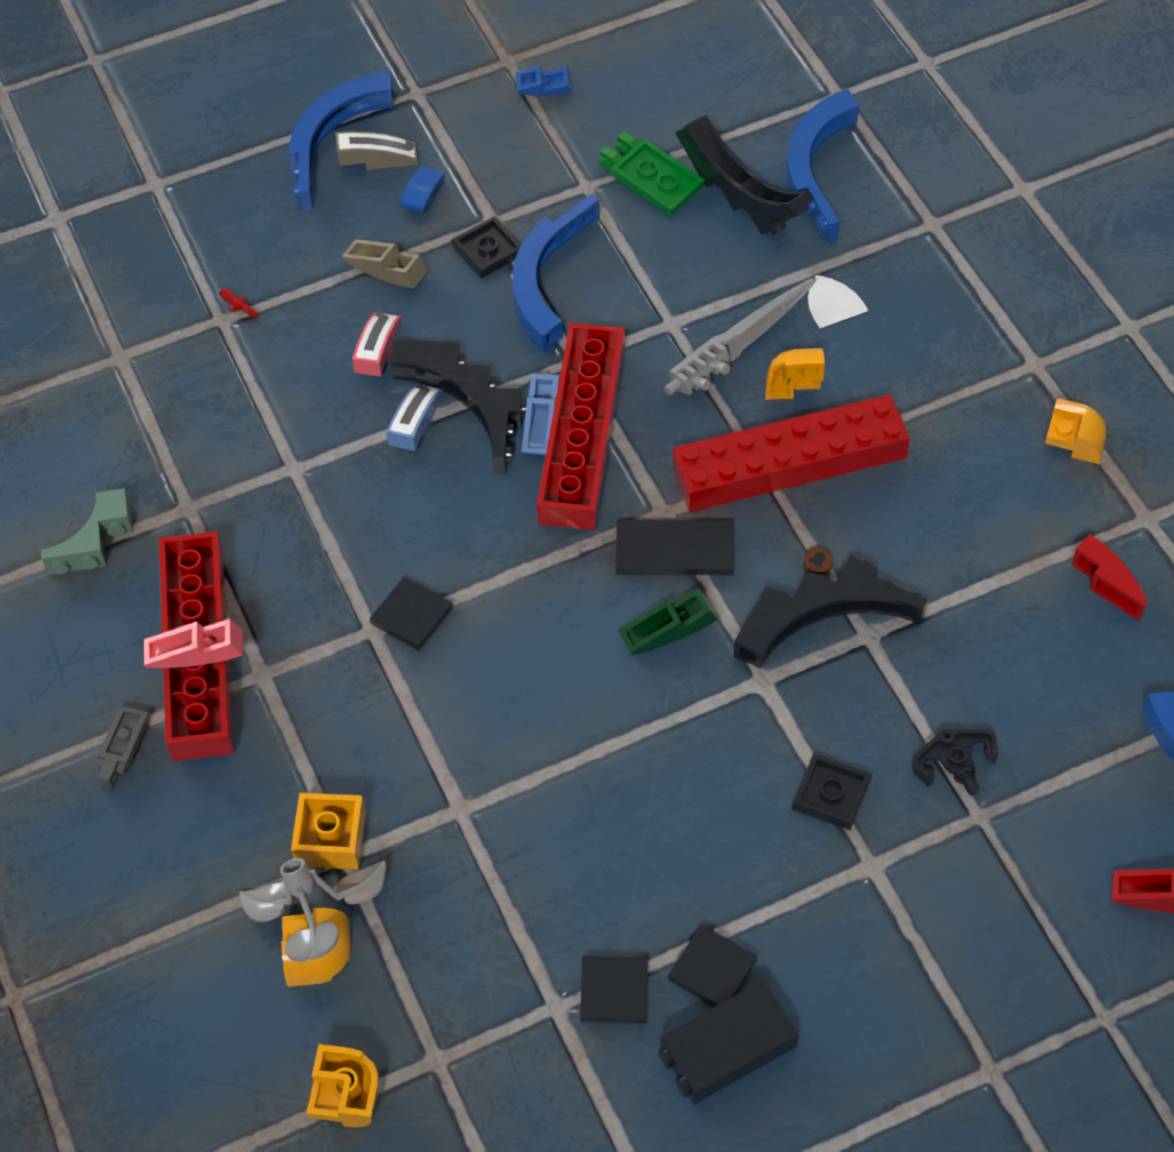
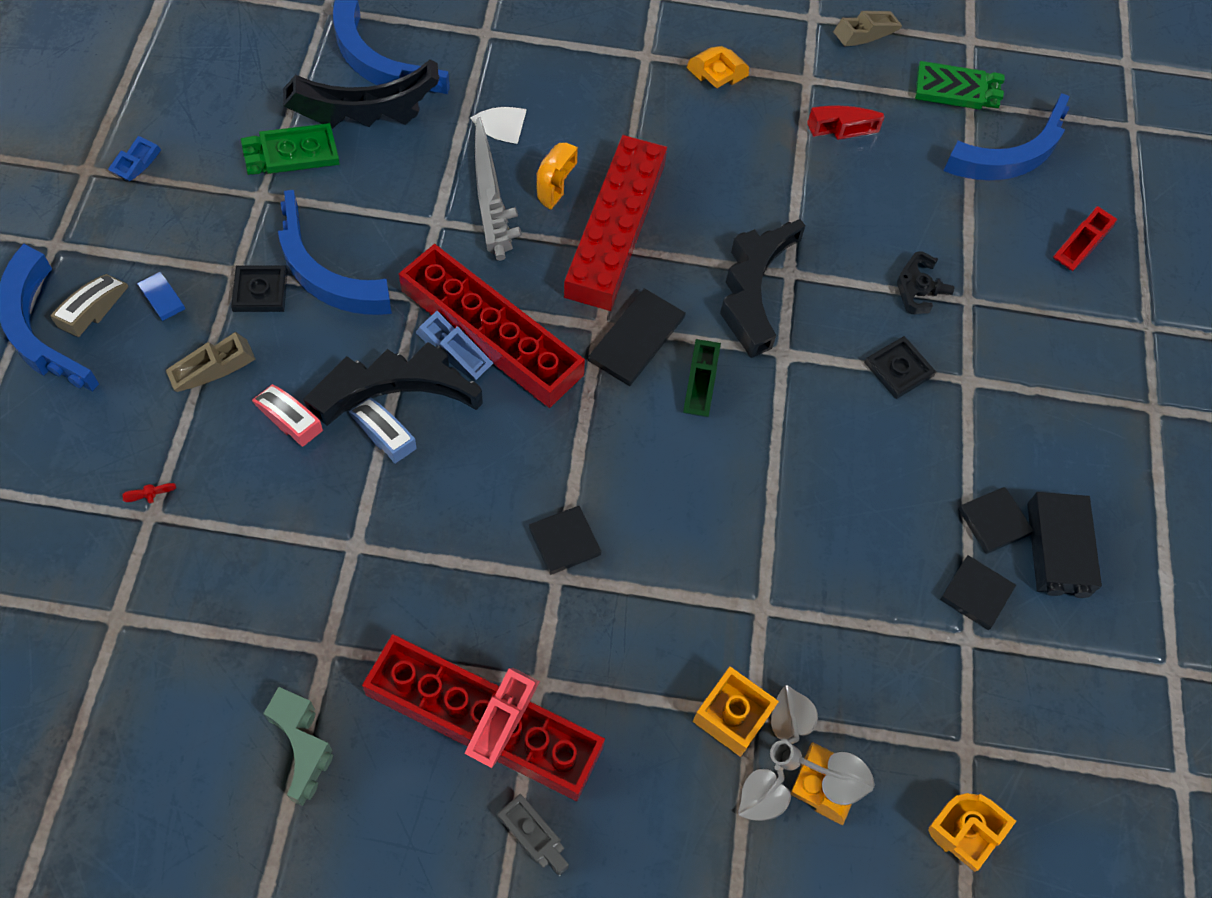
camera: 65 degrees left, 5 degrees up
(818, 561) = (713, 262): reddish brown tile -> none

